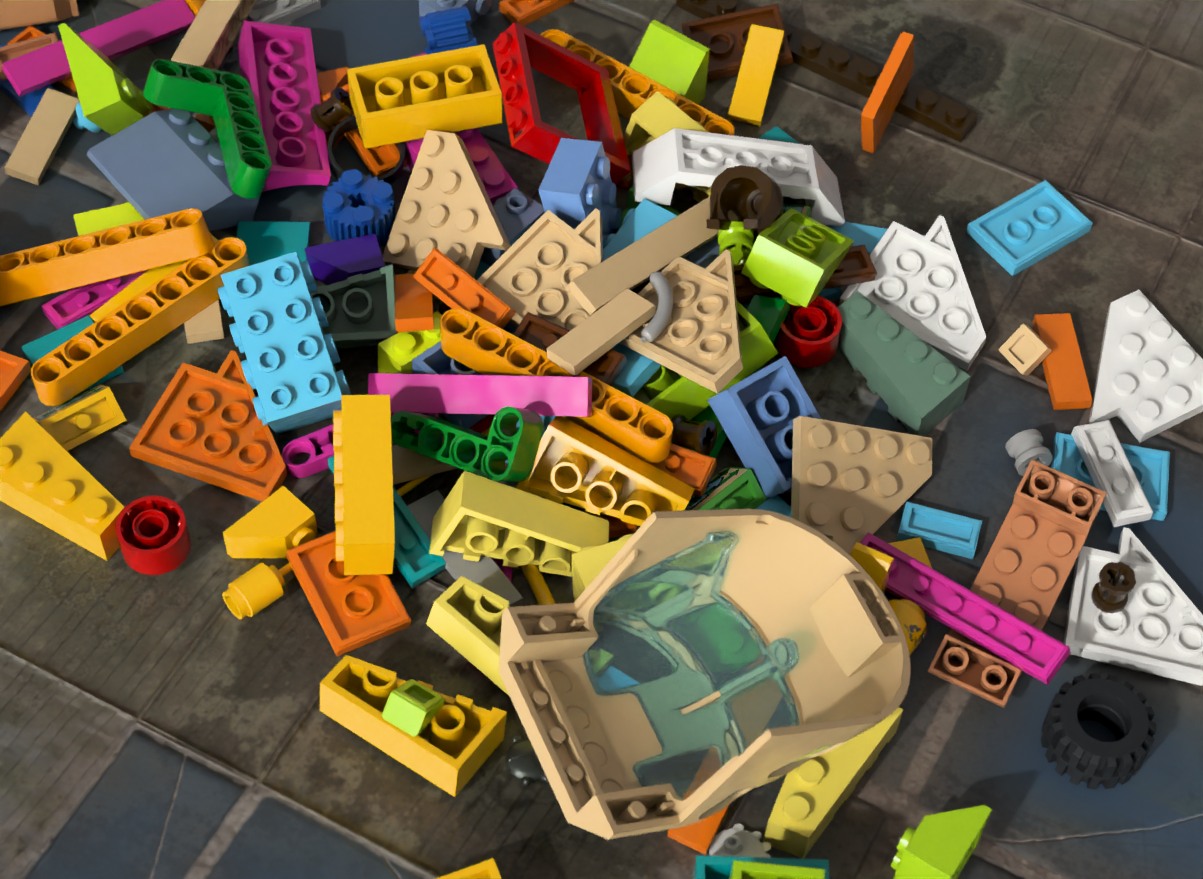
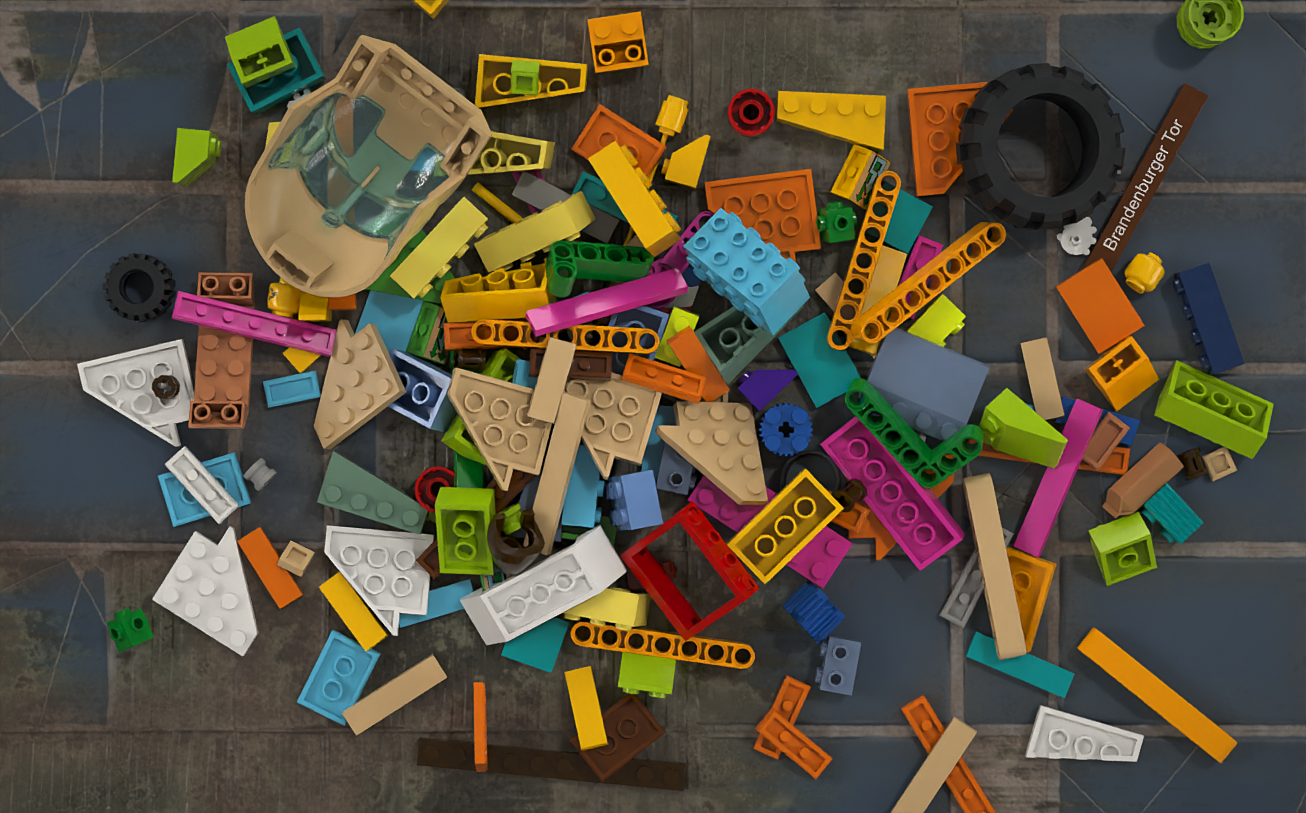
camera: 150 degrees right, 35 degrees up
(144, 375) = (836, 222): none -> green brick
(261, 707) = (618, 42): none -> light orange slope
(664, 308) = (522, 422): light grey piece -> none
(971, 180) = (394, 694): none -> tan tile
(981, 271) = (353, 611): none -> yellow tile

